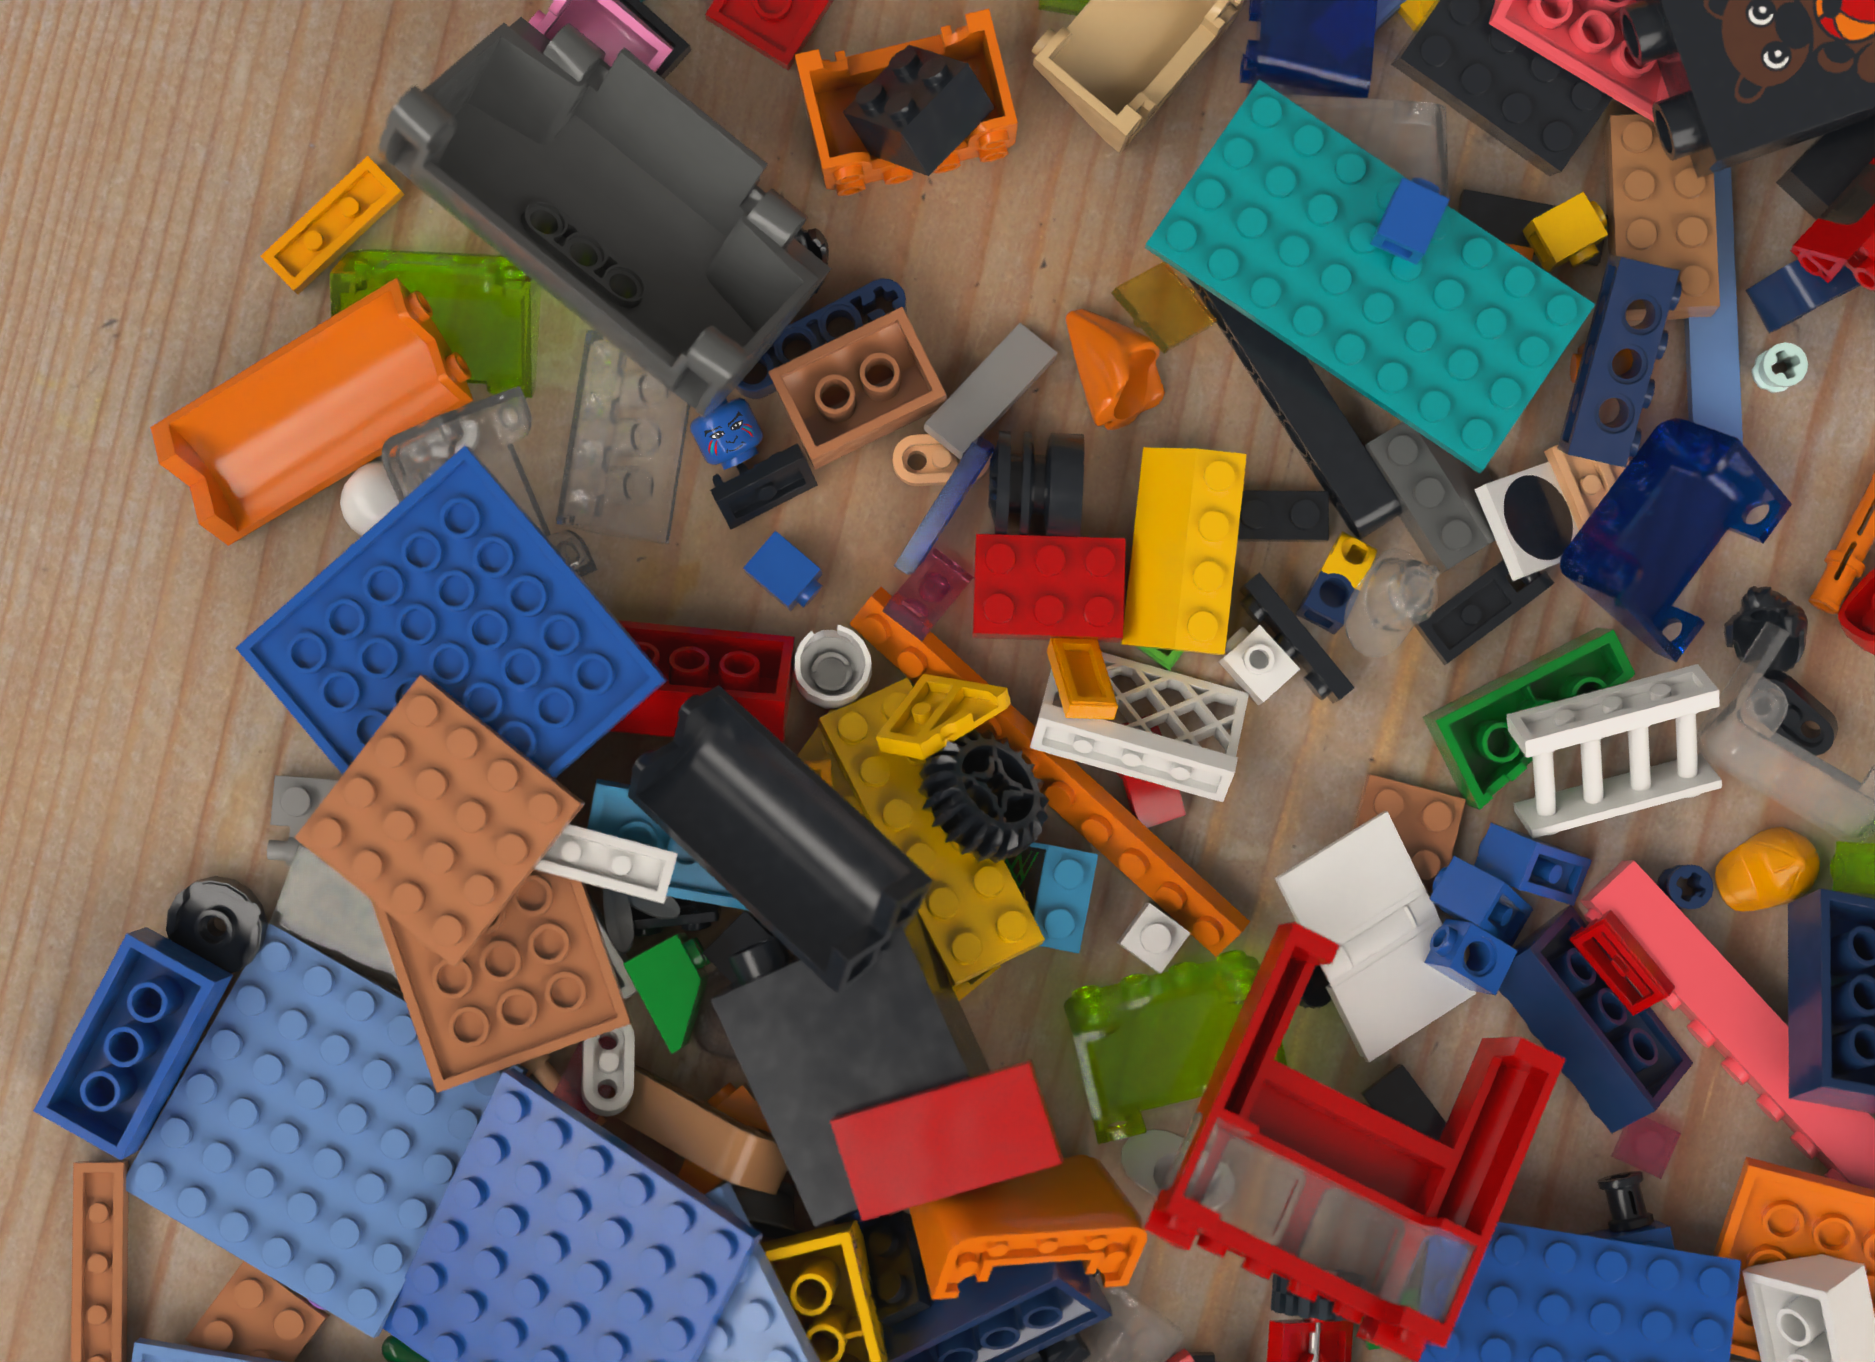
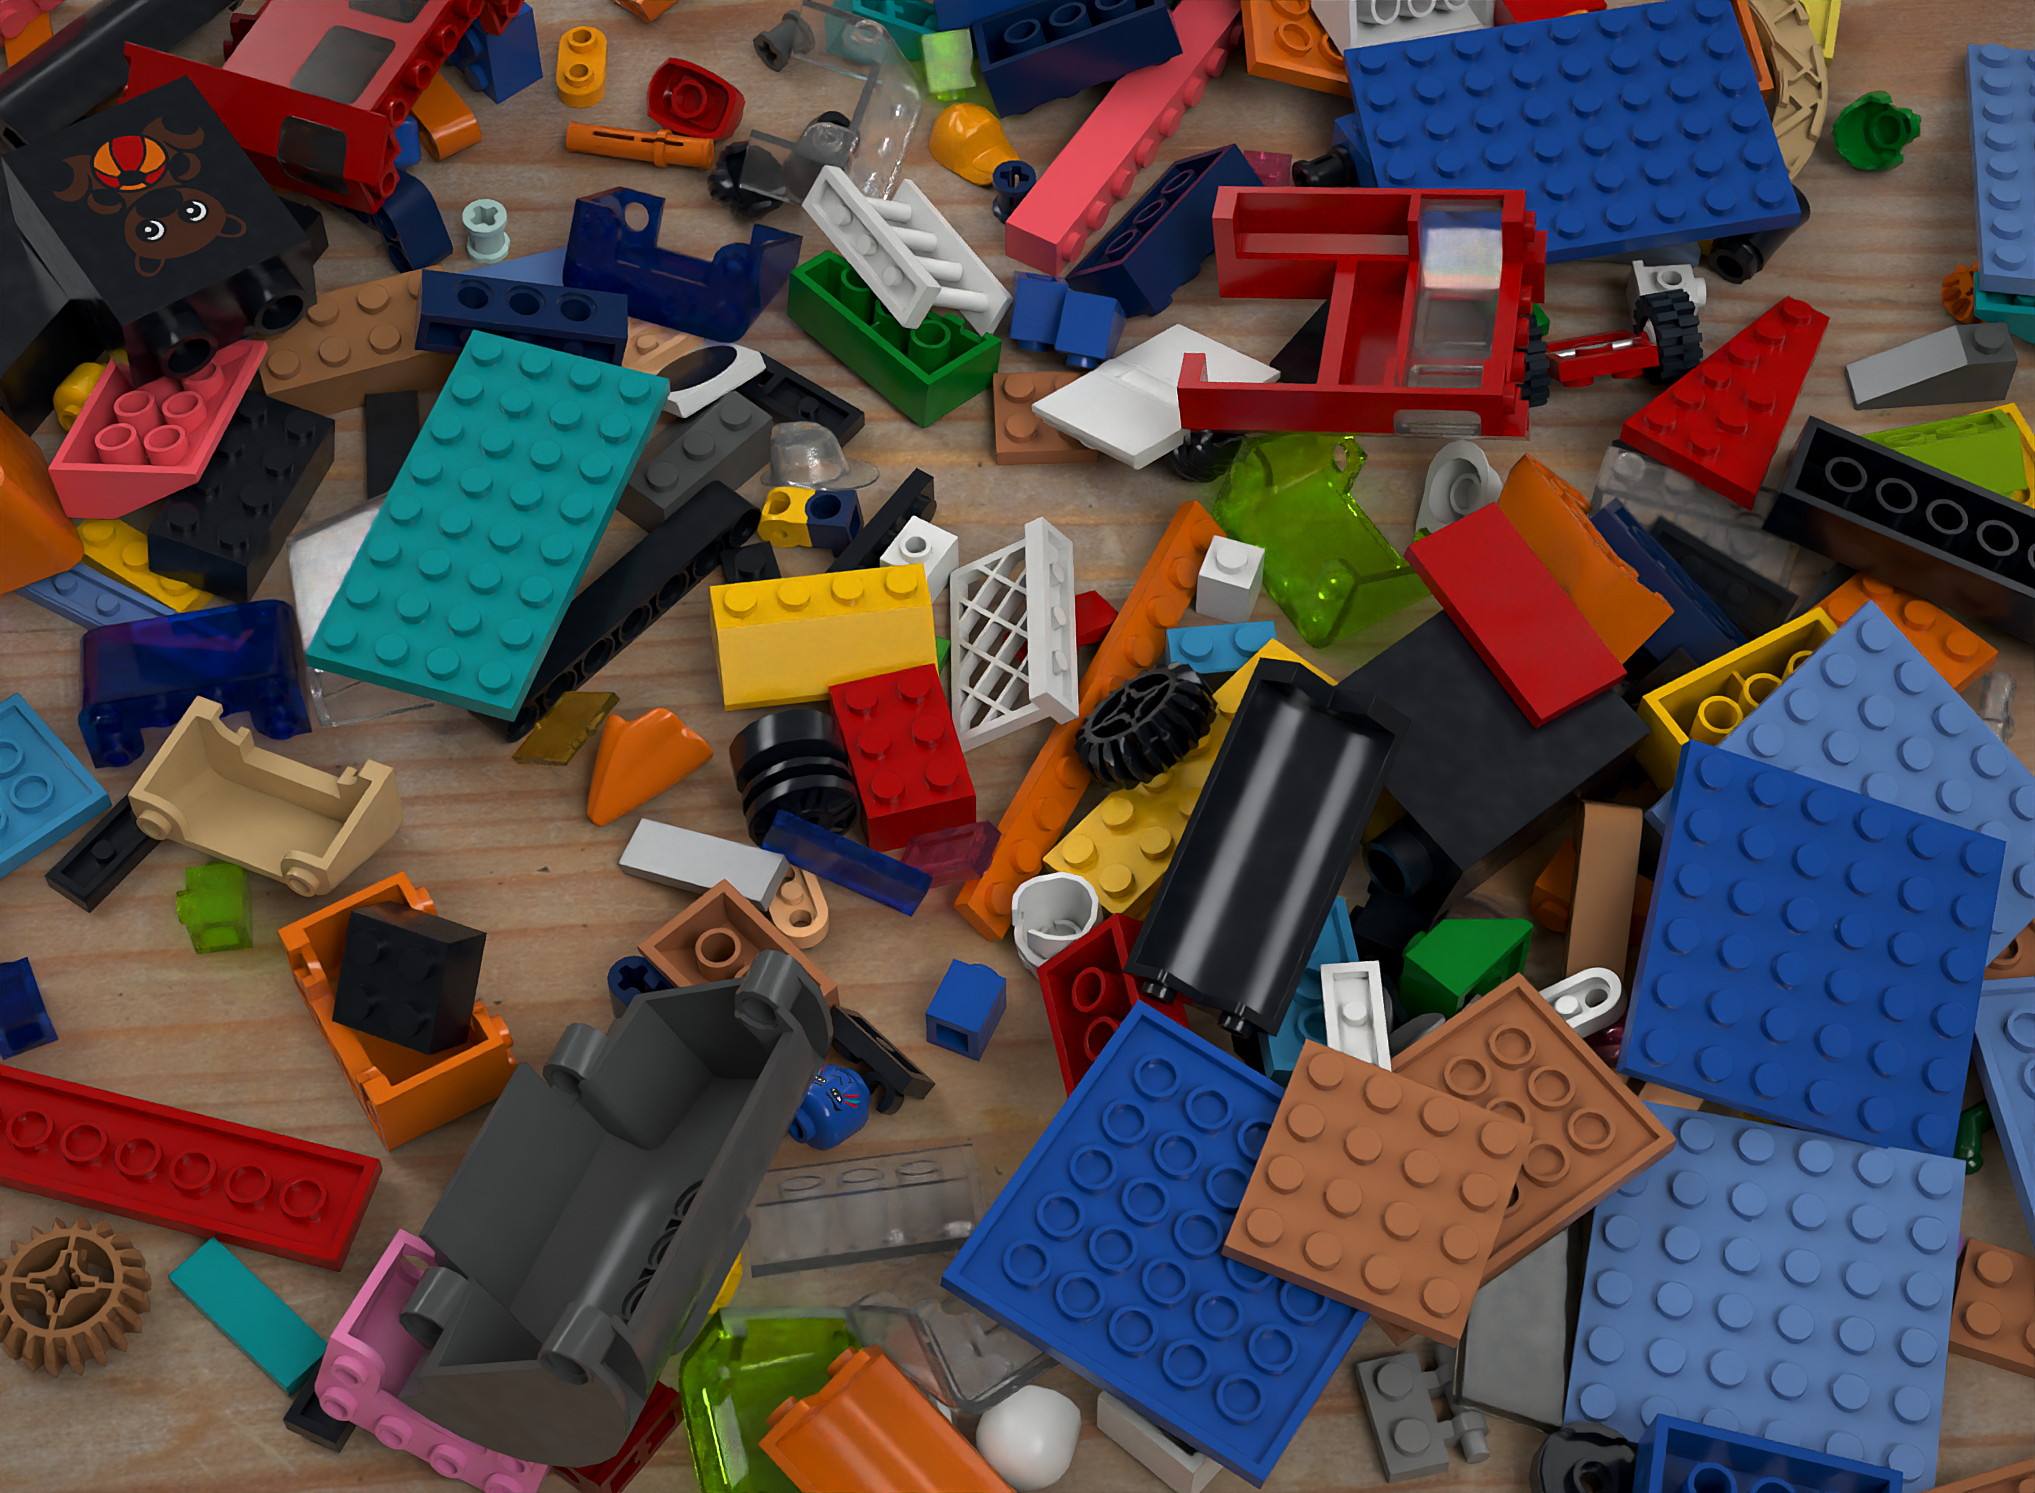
camera: 105 degrees left, 30 degrees down
(937, 713) = (1075, 787): yellow wing -> none
(1082, 678) = (991, 686): light orange tile -> none
(1410, 219) = (430, 472): blue brick -> none
(1487, 960) = (1146, 317): blue brick -> none
(1567, 233) = (393, 408): yellow brick -> none
(1627, 959) = (1084, 232): red tile -> none

